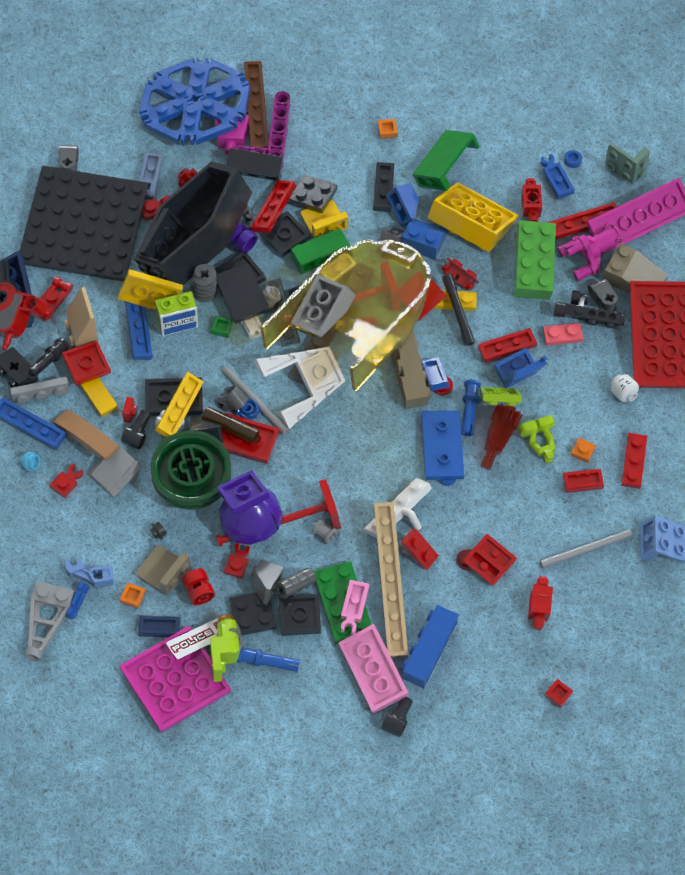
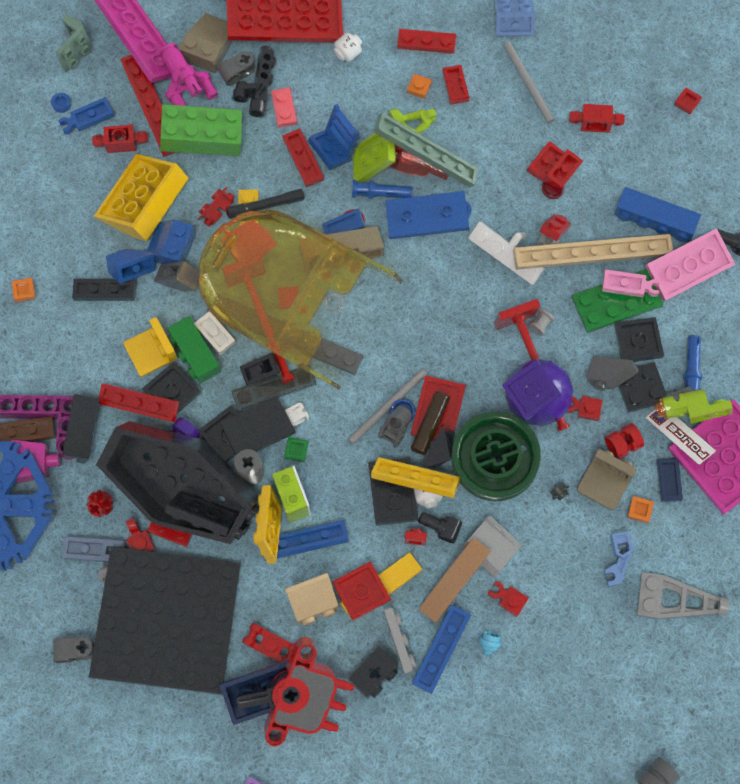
camera: 90 degrees left, 10 degrees up
(52, 354) = (354, 632): black pin -> none
(77, 600) = (651, 567): blue axle -> none
(271, 295) = (258, 395): light grey plate -> none
(295, 582) = (607, 343): dark grey axle -> none
(313, 193) = (116, 363): plate -> none
(318, 372) = (356, 338): white wing -> none
(323, 306) = (288, 329): light grey slope -> none
(441, 158) = (70, 223): green panel -> none
(498, 434) = (425, 149): none -> sand green plate

